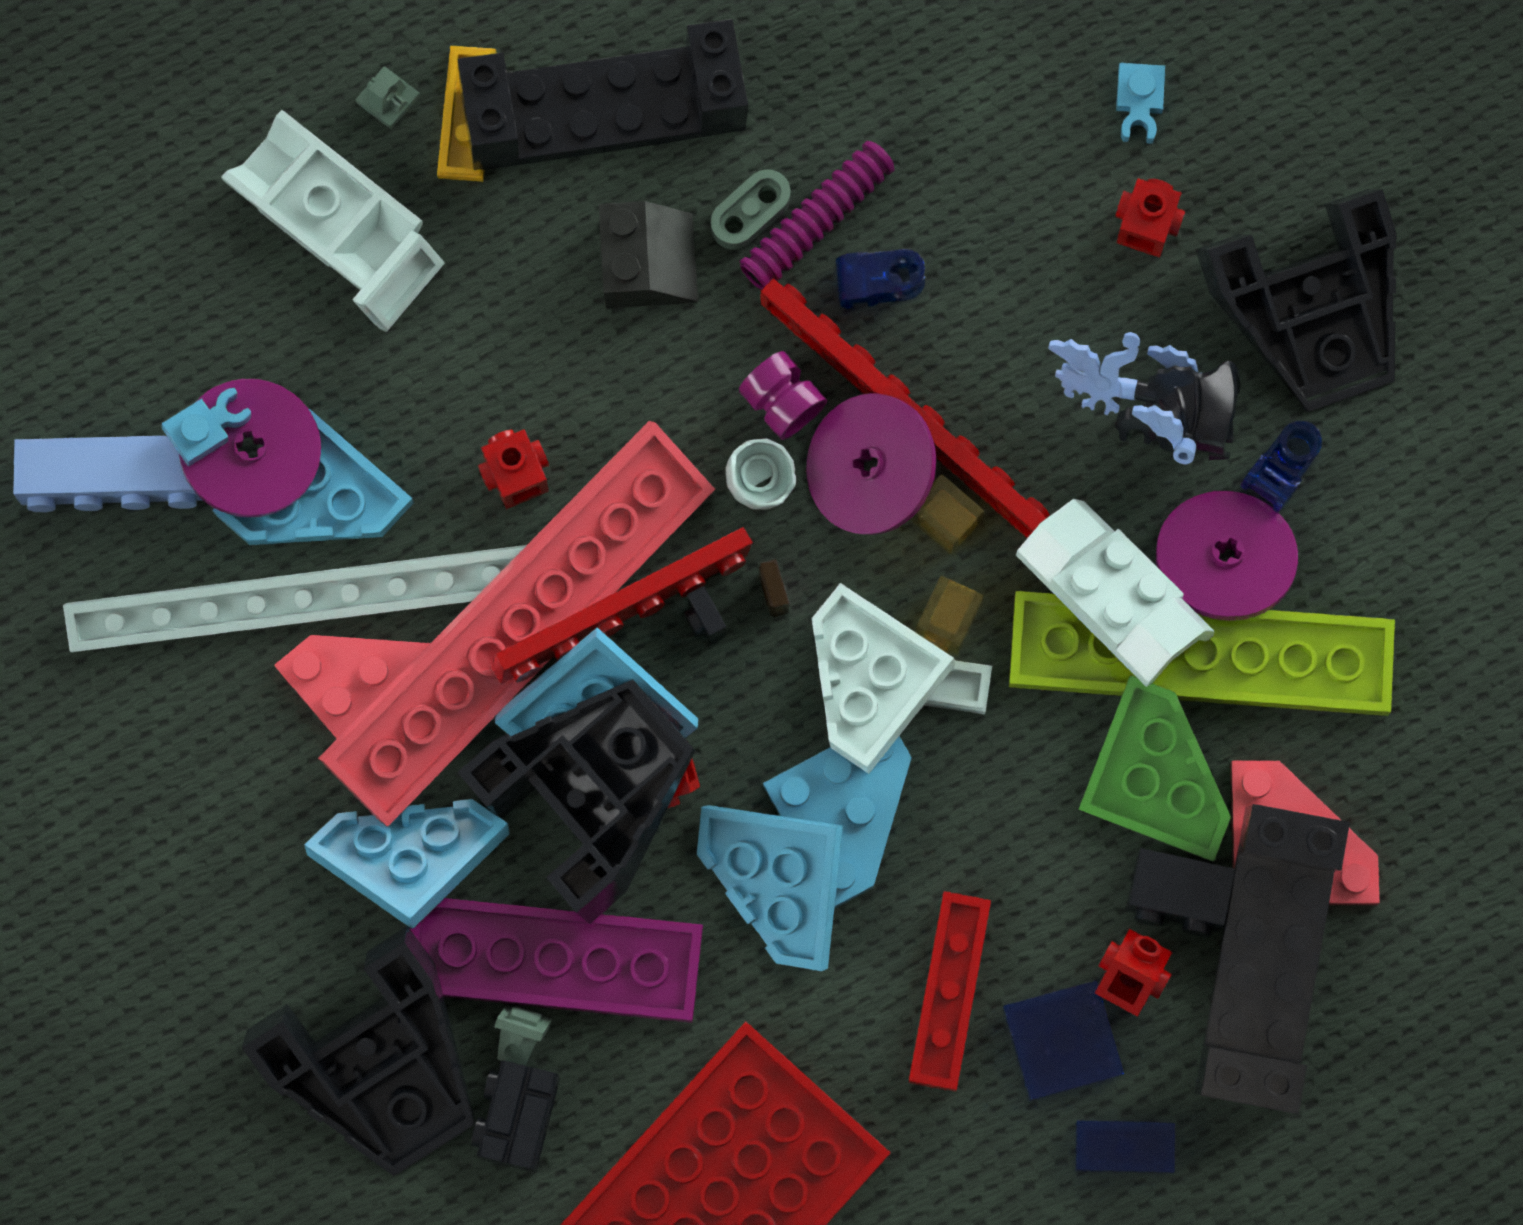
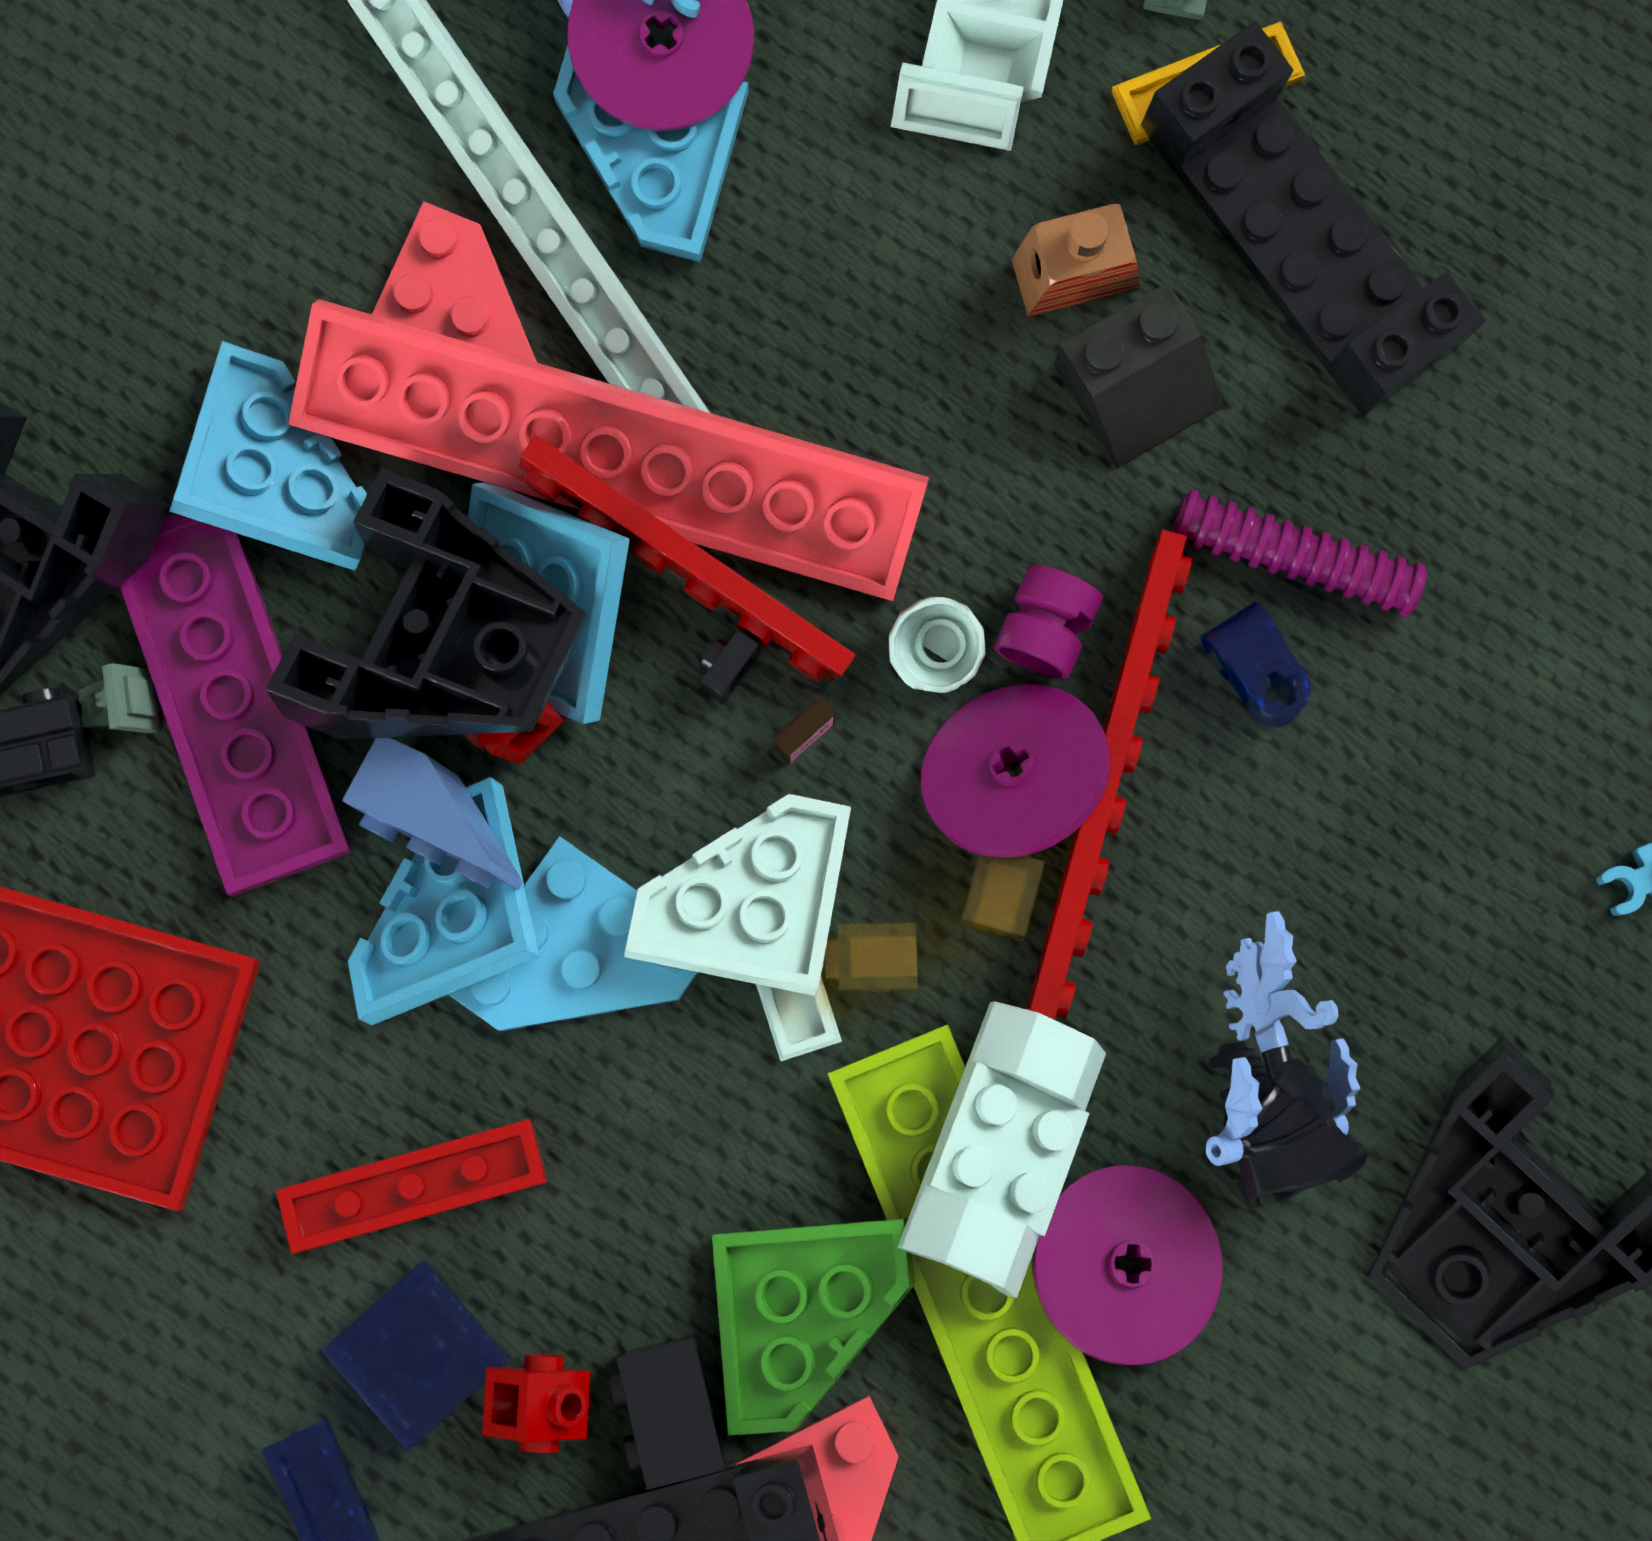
camera: 60 degrees right, 5 degrees up
(519, 481) = (795, 351): red brick -> none
(548, 252) = (1079, 258): none -> medium nougat torso
(695, 858) = (430, 804): none -> medium blue slope
(749, 210) = (1264, 465): sand green plate -> none
(1149, 216) = (1492, 959): red brick -> none
(1280, 471) = (1275, 1281): clear blue piece -> none

